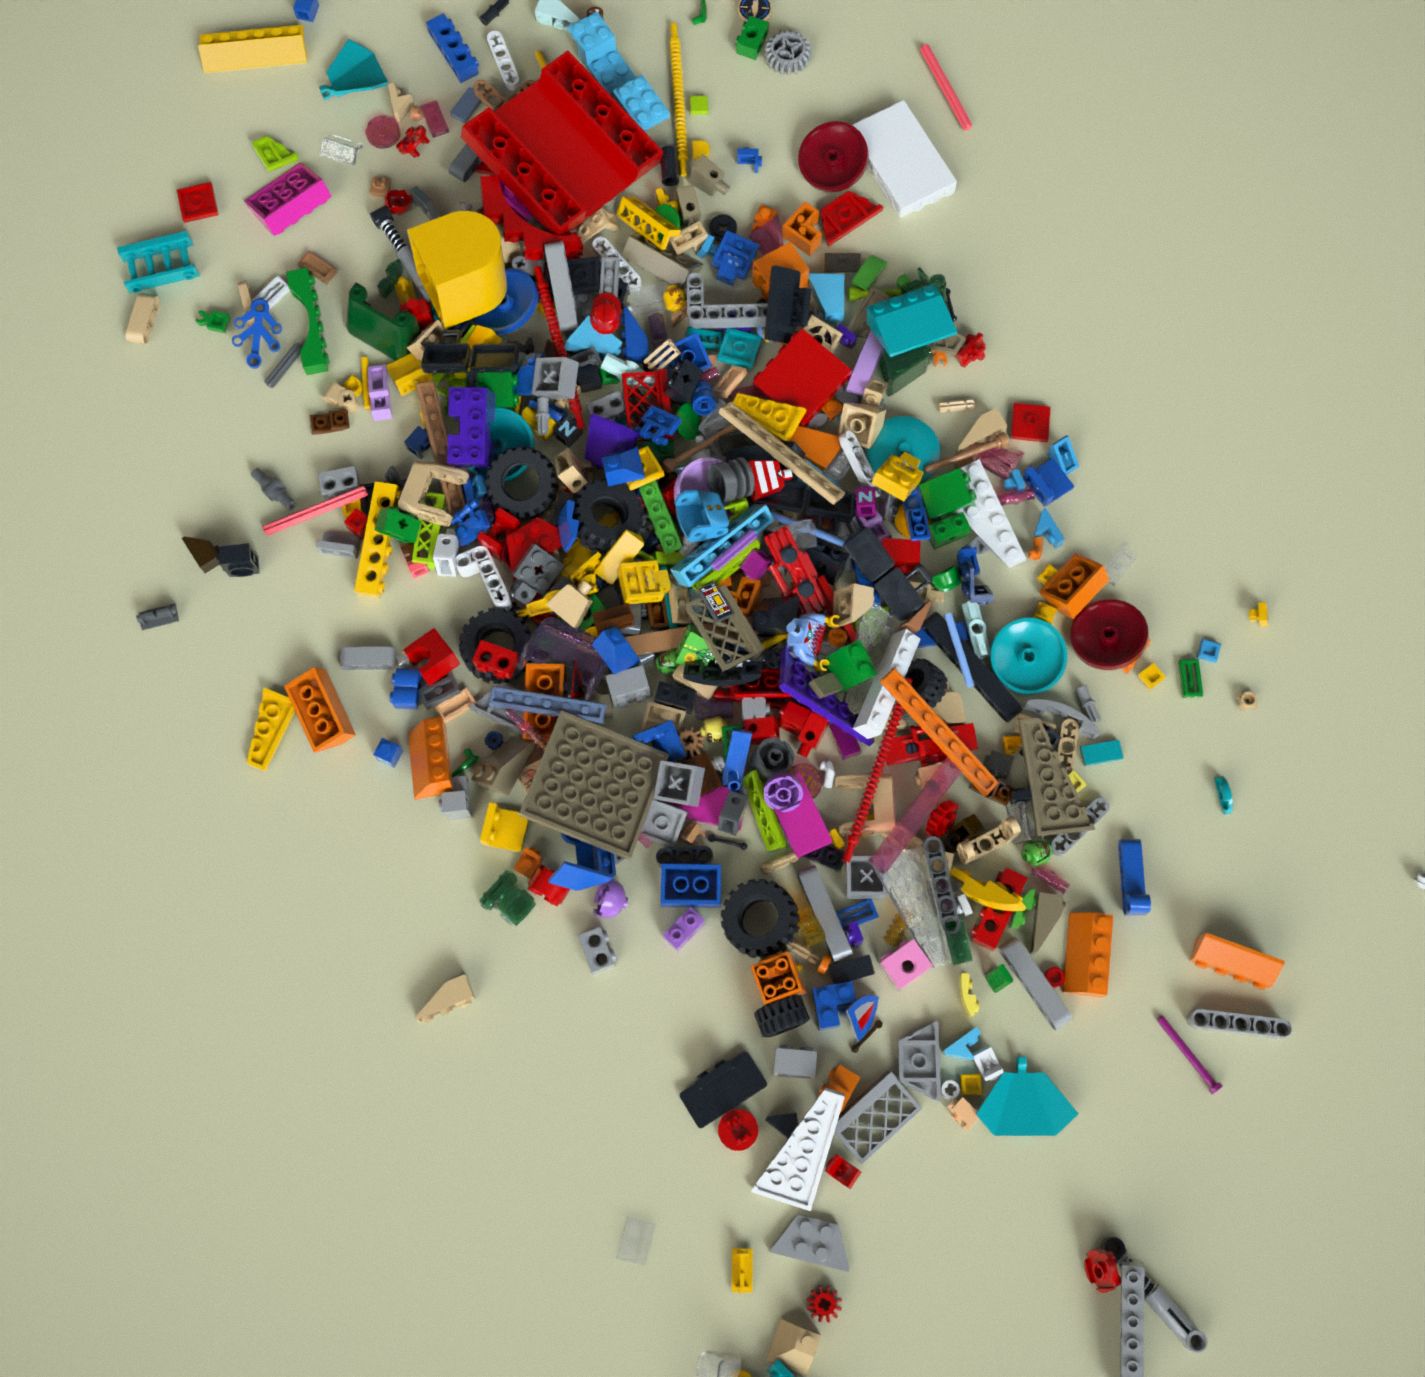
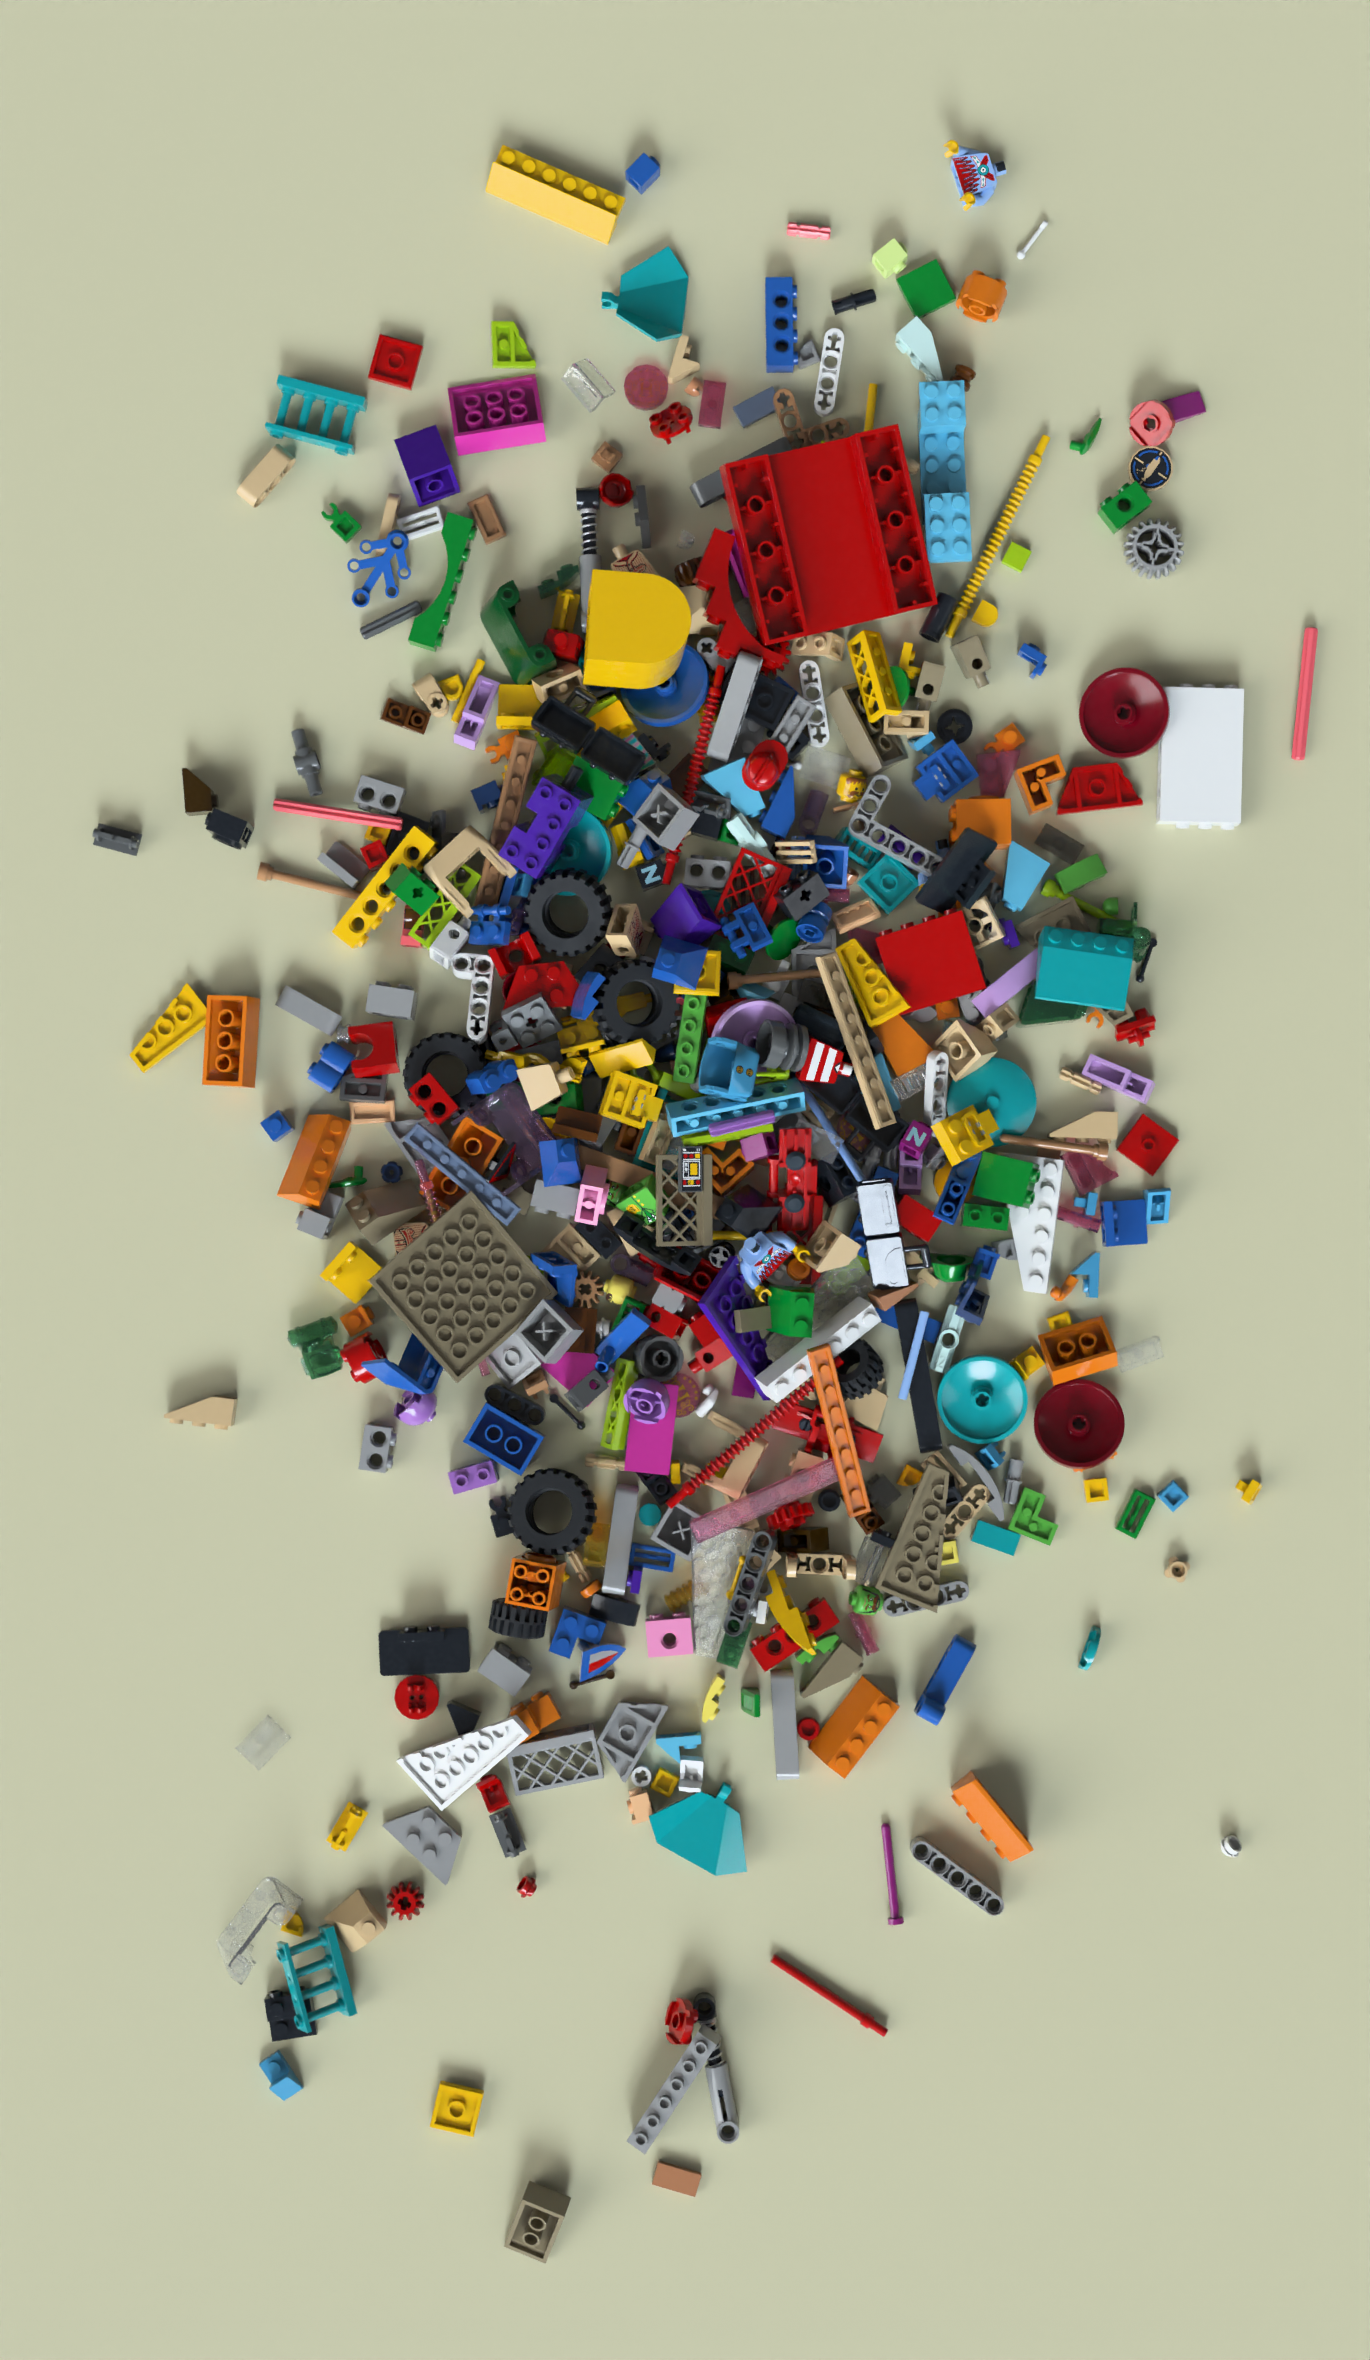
camera: 30 degrees right, 15 degrees up
(256, 253) = (427, 465): none -> dark purple slope
(285, 579) = (268, 873): none -> medium nougat piece
(413, 406) = (504, 748): none -> orange plate
(426, 614) = (391, 1001): none -> light grey brick
(483, 58) = (808, 355): none -> light grey tile
(530, 620) = (492, 1076): none -> blue brick
(654, 664) = (592, 1195): none -> bright pink brick
(726, 951) = (500, 1519): none -> black plate
(835, 883) = (650, 1514): none -> teal tile
(873, 1198) = (507, 1833): none -> dark grey hinge
(914, 1233) = (526, 1886): none -> red plate
(932, 904) = (729, 1594): none -> yellow hinge
(962, 795) = (829, 1500): none -> black plate
(982, 388) = (1118, 1078): none -> lavender slope
(1060, 694) = (989, 1456): none -> dark azure tile
(1117, 727) = (1026, 1519): none -> bright green plate
(1242, 1182) = (865, 2018): none -> red bar

